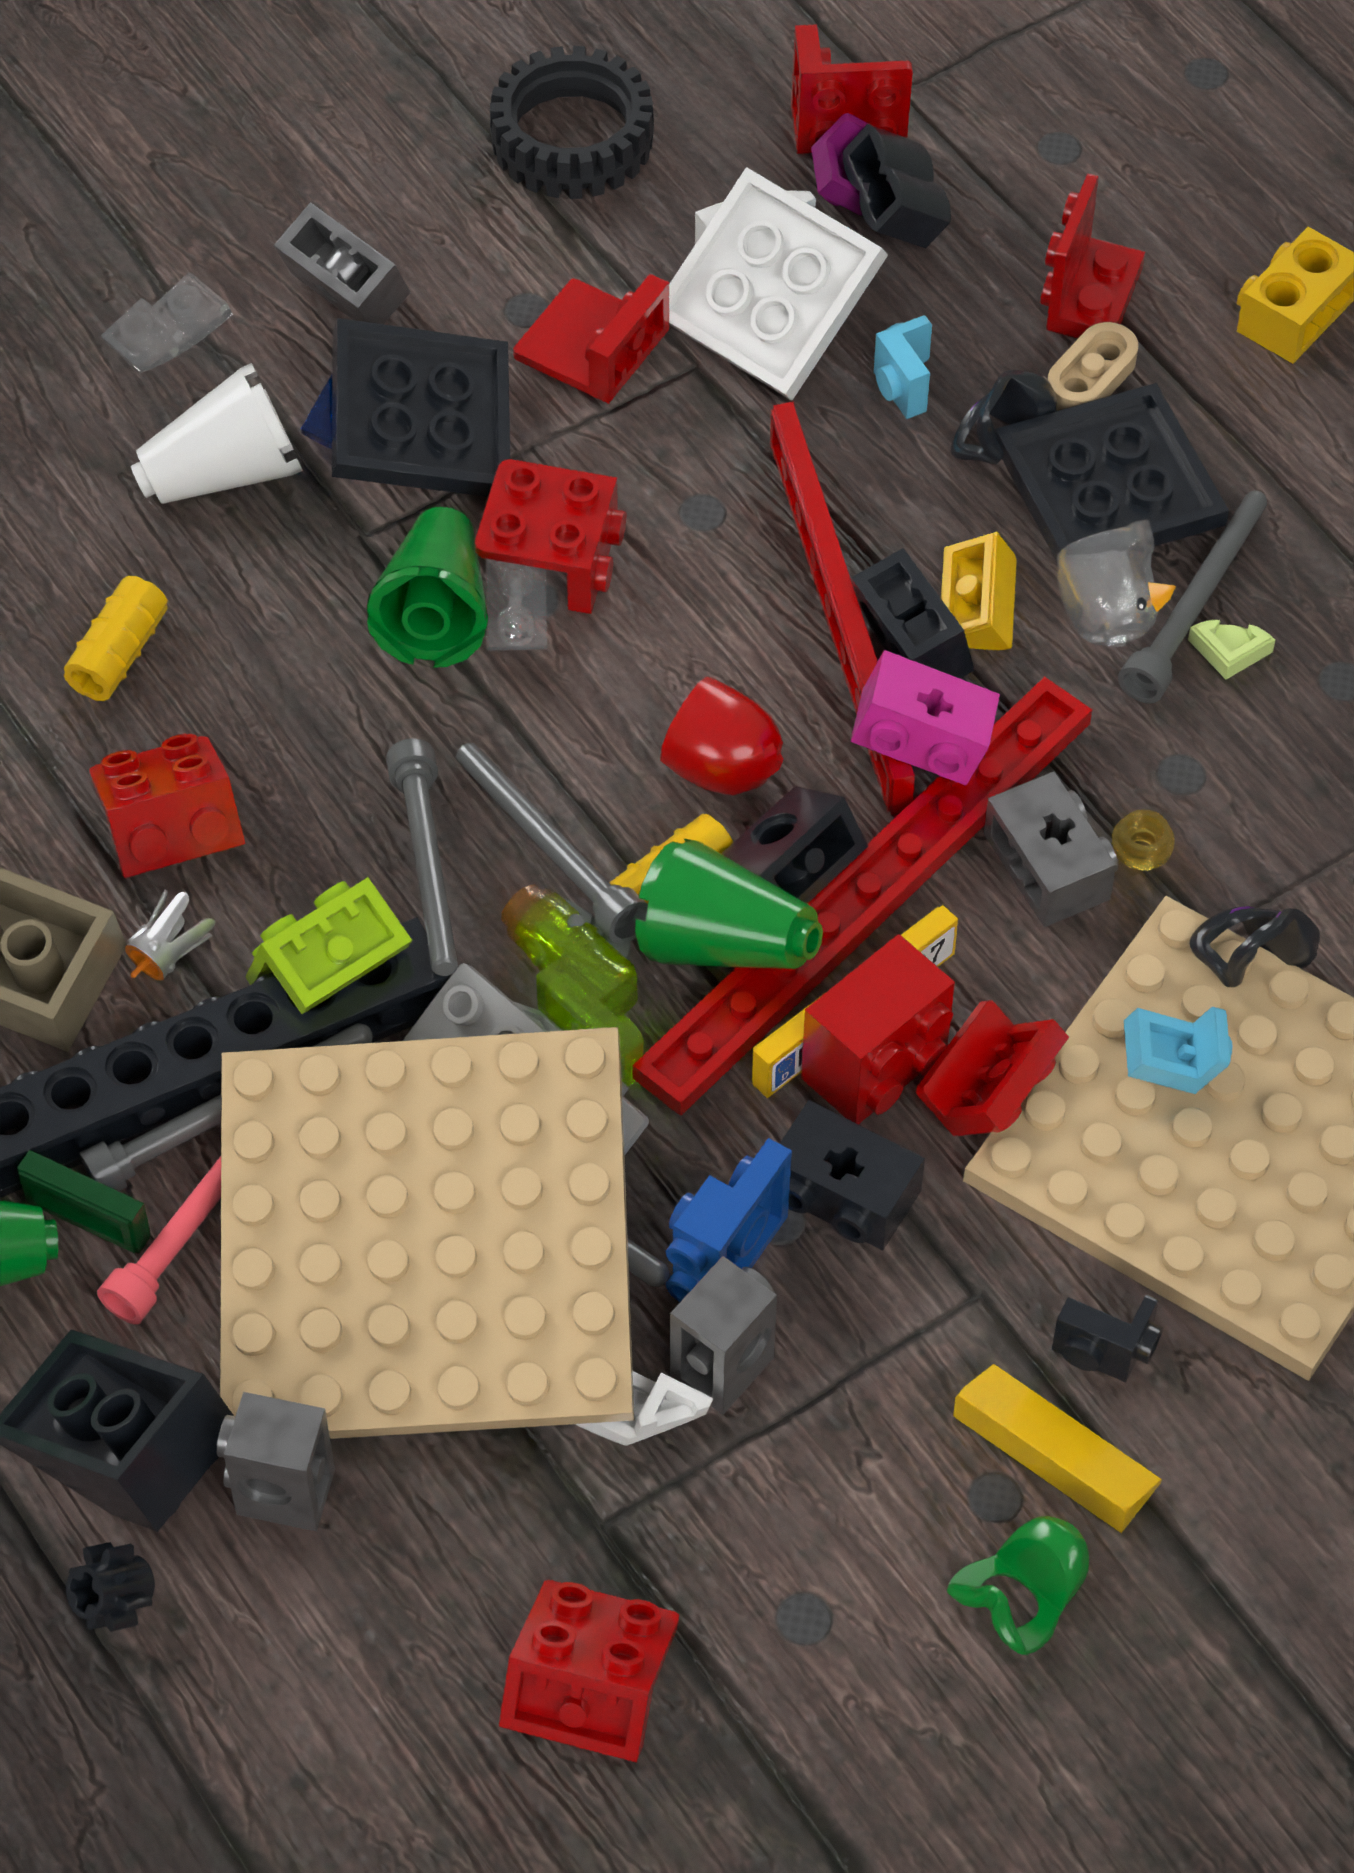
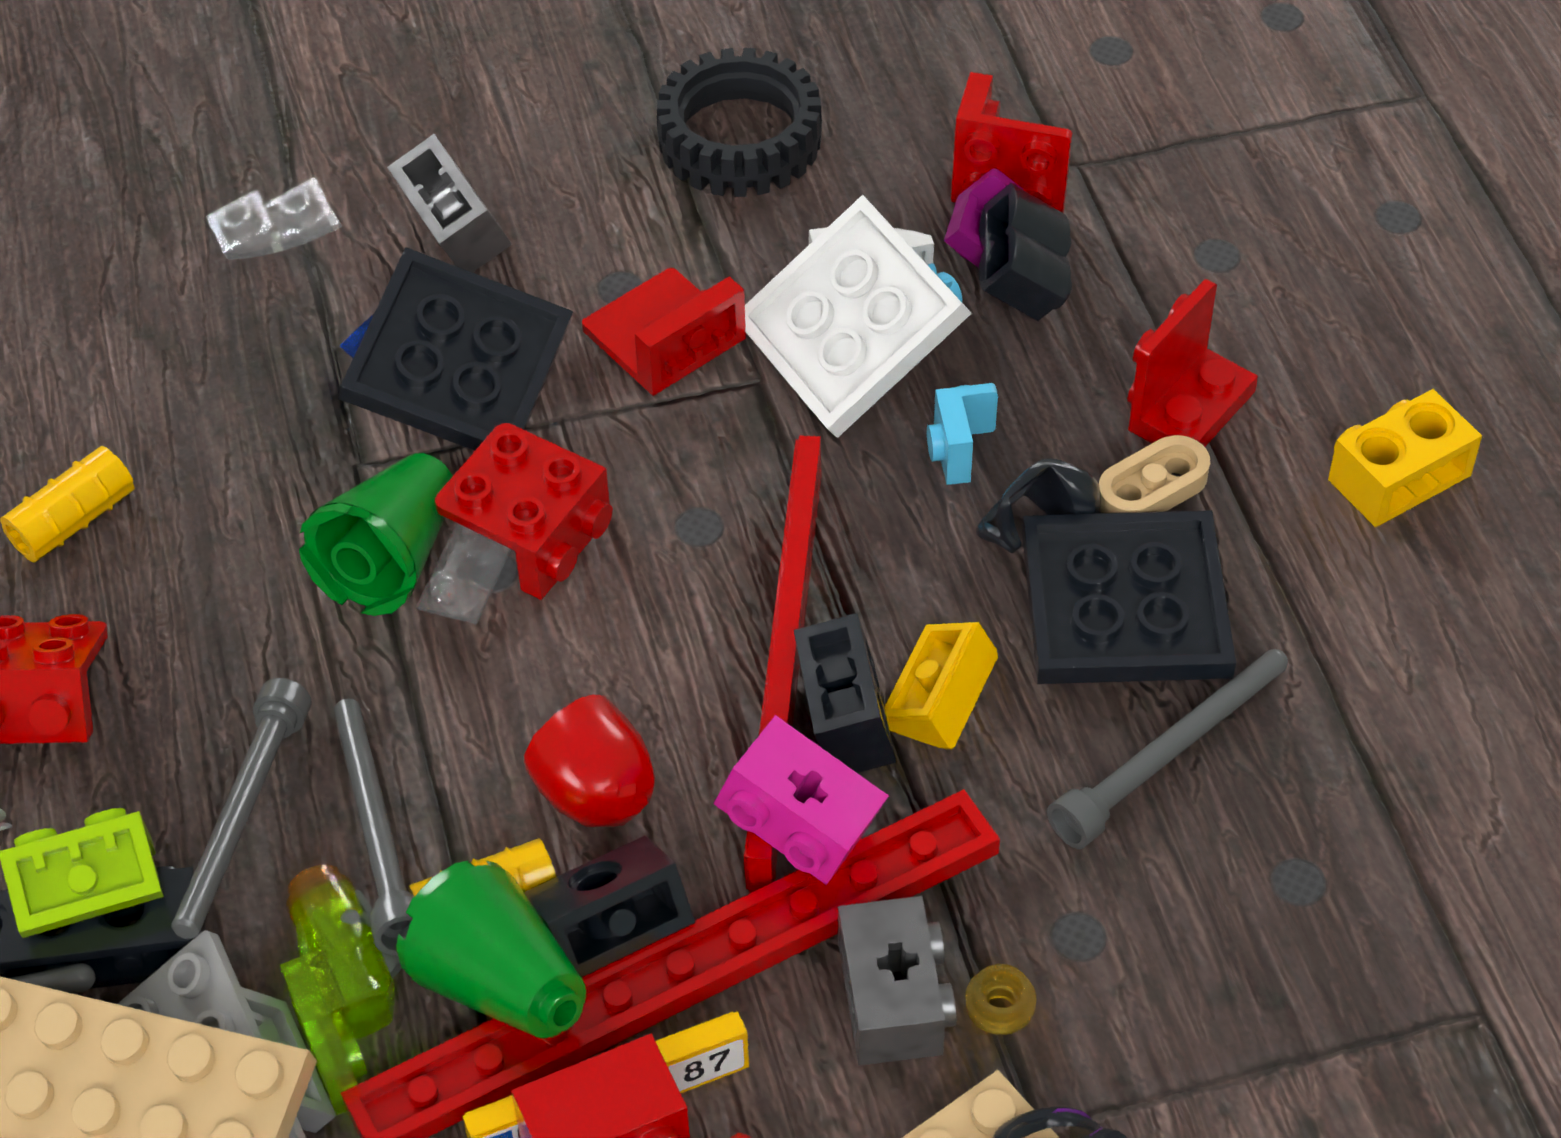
camera: 20 degrees right, 5 degrees down
(217, 444) = (255, 340): white cone -> none
(1111, 585) = (1066, 715): clear piece -> none
(1230, 646) = (1187, 810): yellowish green tile -> none

